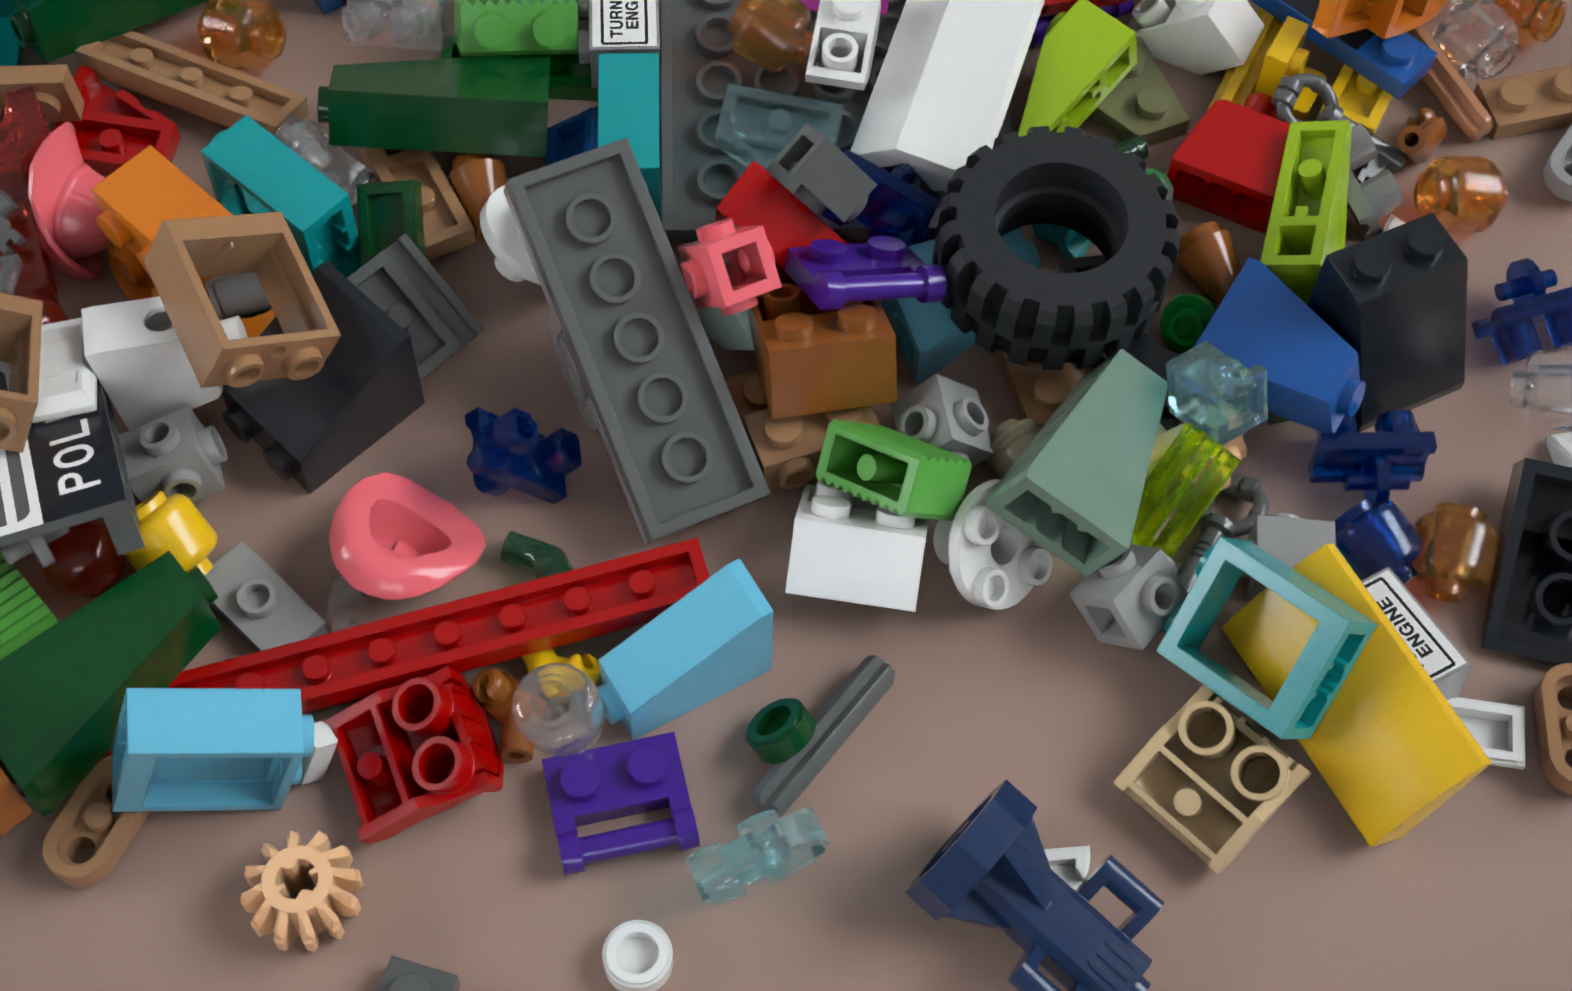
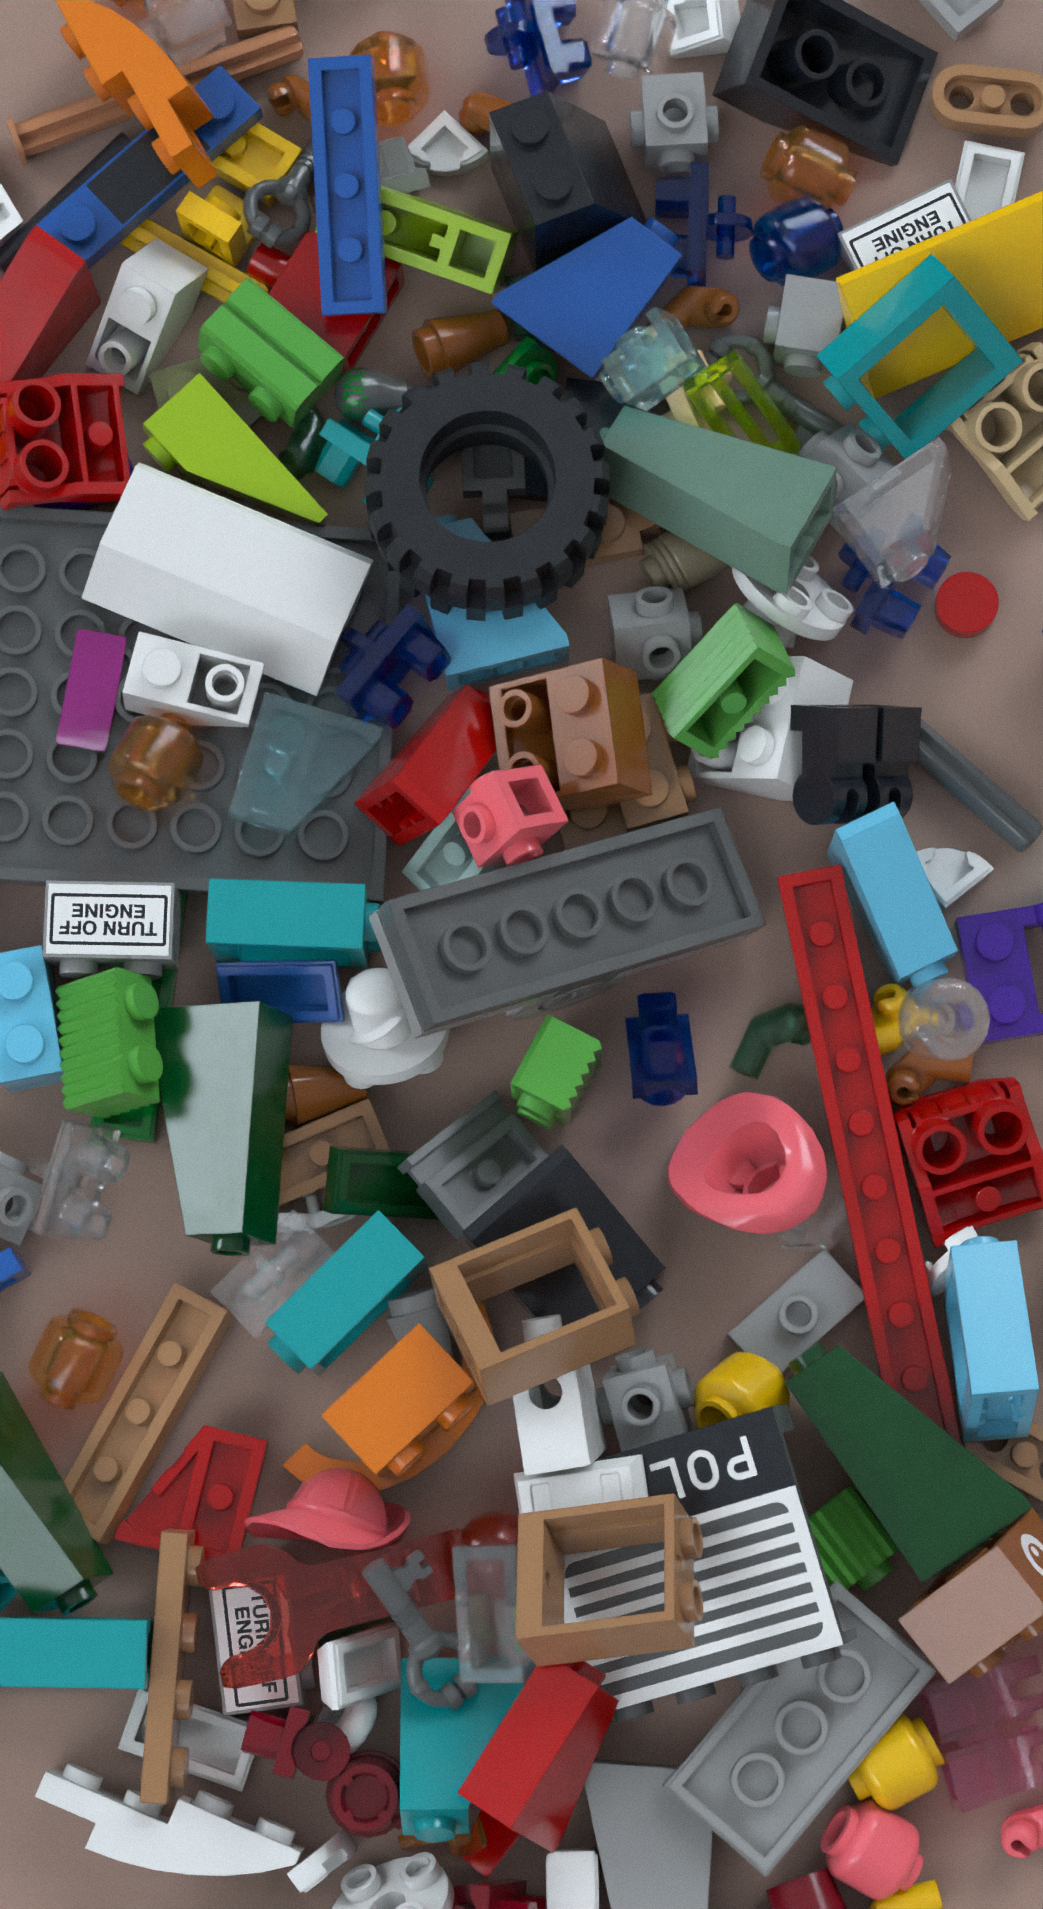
camera: 80 degrees left, 20 degrees up
(493, 357) = (555, 1073): none -> bright green brick
(722, 727) = (952, 872): none -> white tile
(780, 730) = (962, 818): dark green tile -> none
(822, 175) = (400, 715): dark grey brick -> none
(854, 616) = (854, 760): none -> black legs
(863, 272) = (495, 687): dark purple plate -> none
(1014, 732) = (966, 604): none -> red tile
(1035, 643) = (886, 607): none -> clear blue hips
(1091, 623) = (898, 515): none -> clear slope
(1168, 98) = (268, 354): none -> bright green brick
(1287, 463) = (703, 307): none -> dark orange arm
(1338, 124) = (347, 185): none -> blue plate
(1476, 424) = (673, 122): none -> light grey brick

